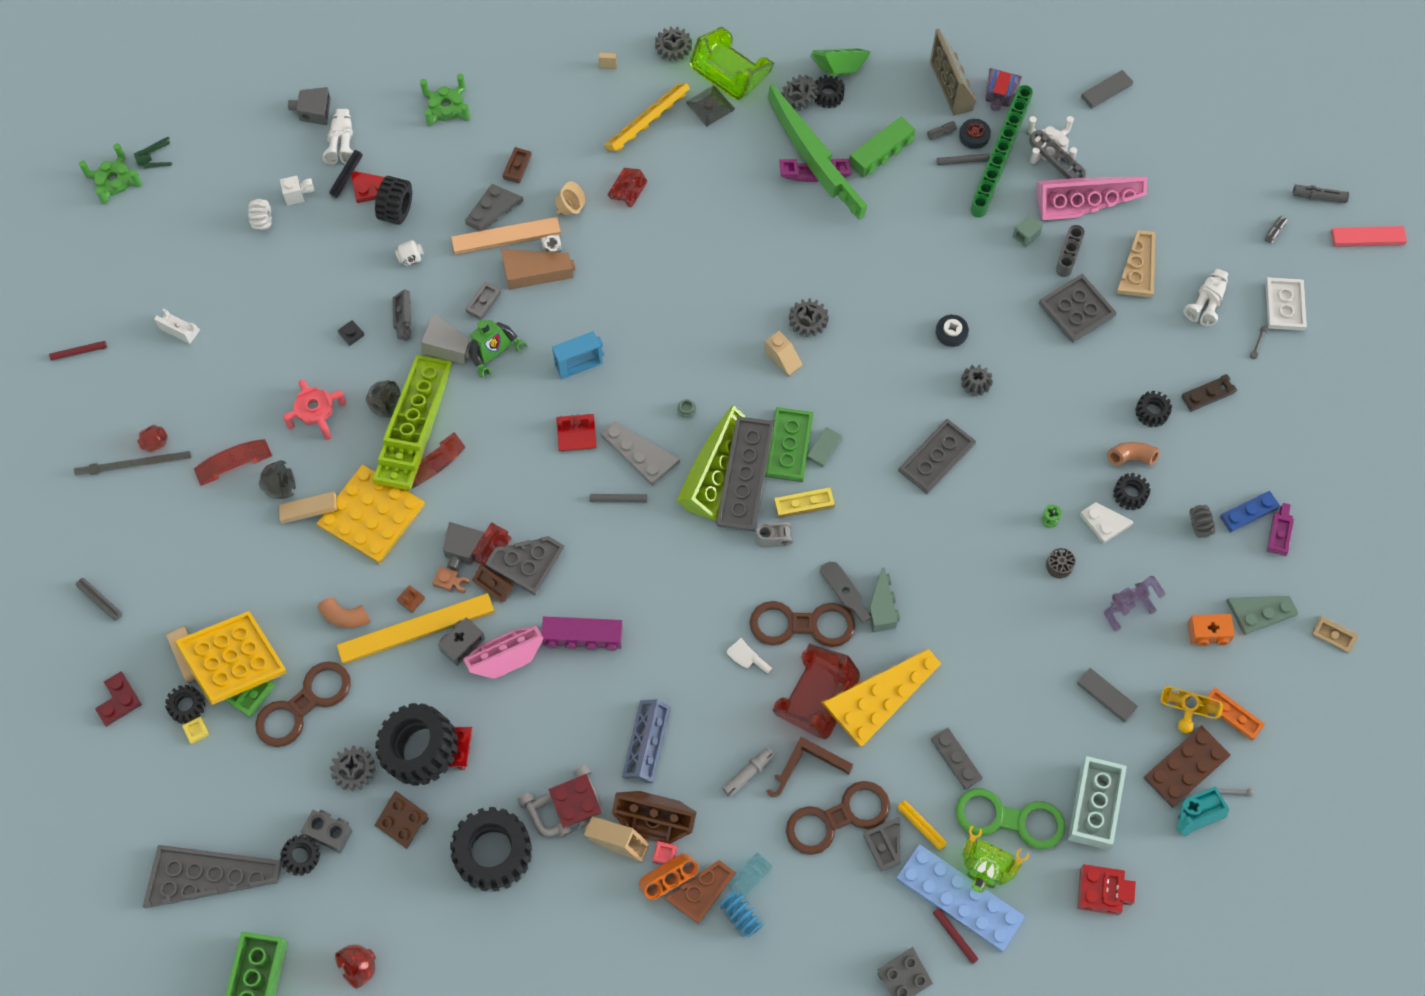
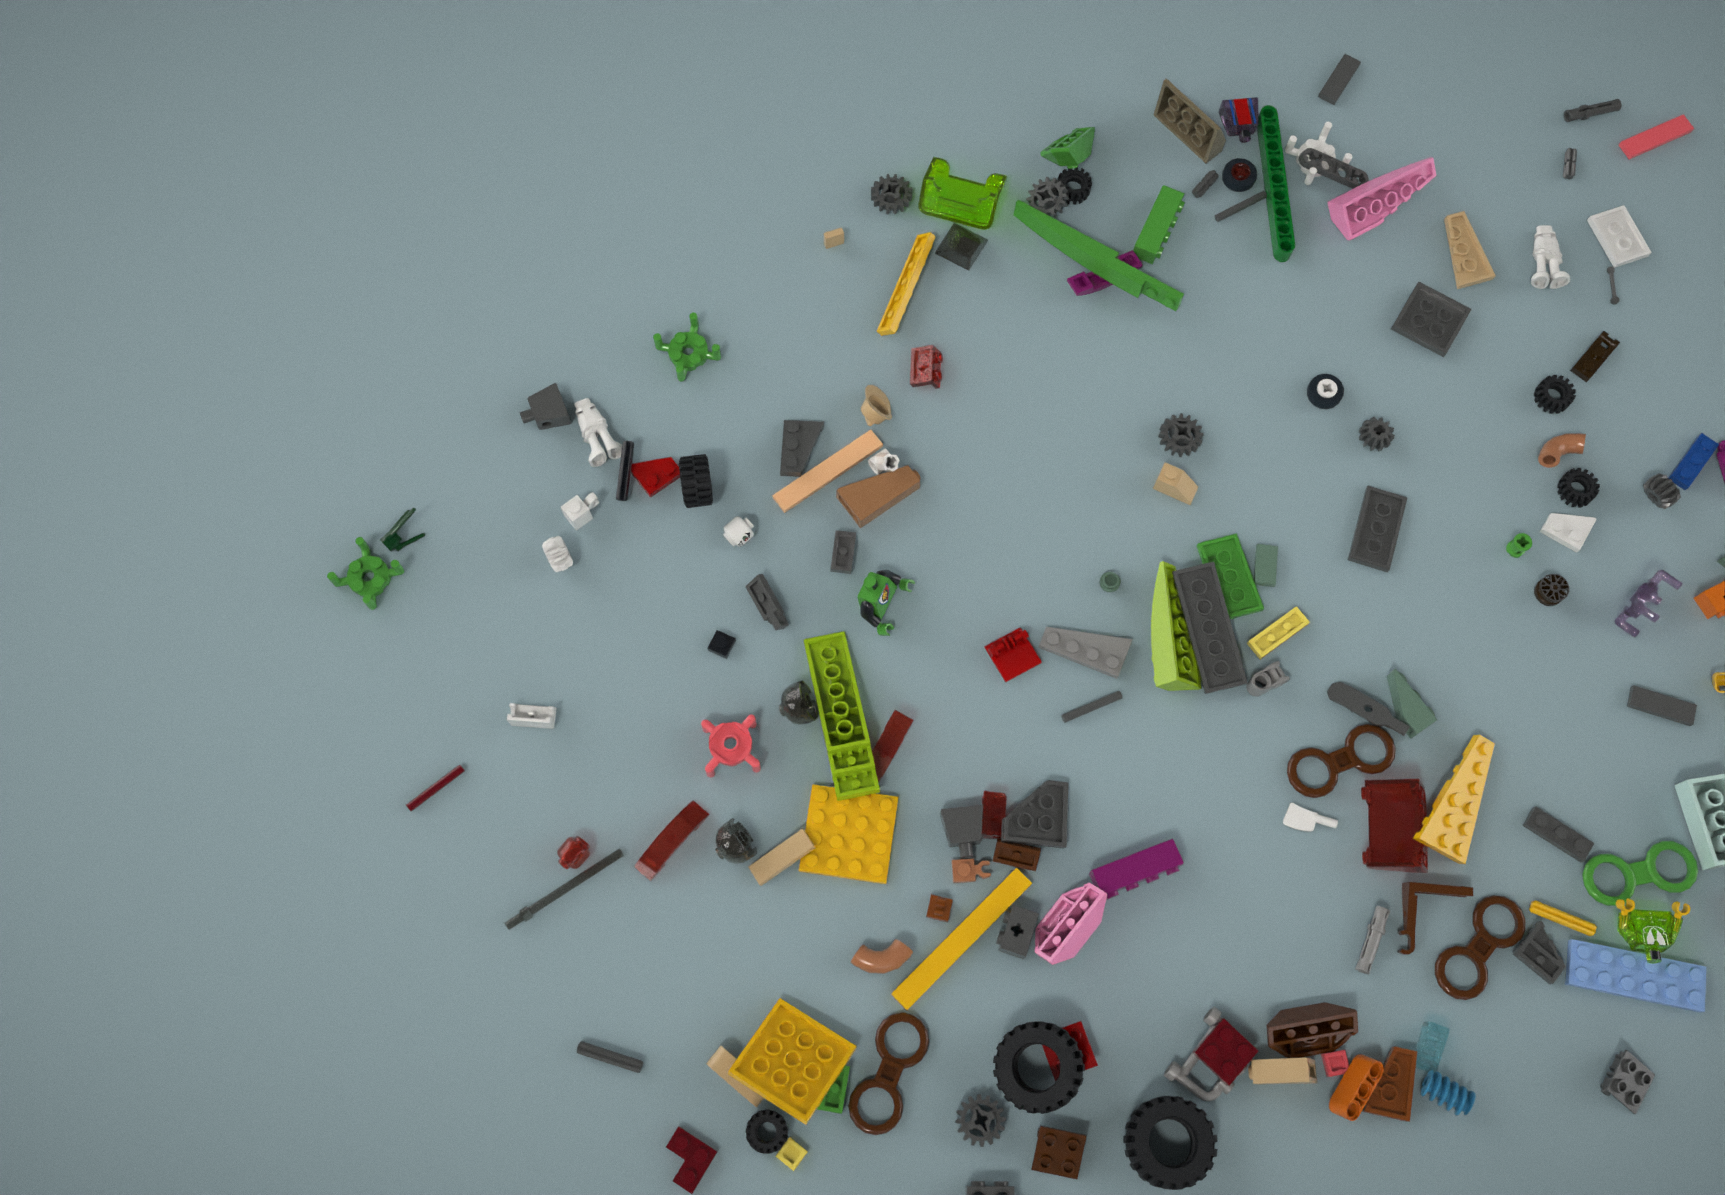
camera: 25 degrees left, 5 degrees up
(445, 341) = (829, 613): light grey slope -> none
(517, 165) = (799, 389): reddish brown plate -> none
(578, 354) = (976, 571): dark azure window -> none
(650, 740) = (1263, 953): sand blue fence -> none
(955, 936) = (1647, 1014): dark red bar -> none
(1027, 230) = (1343, 257): sand green brick -> none
(1067, 257) = (1393, 251): dark grey beam -> none

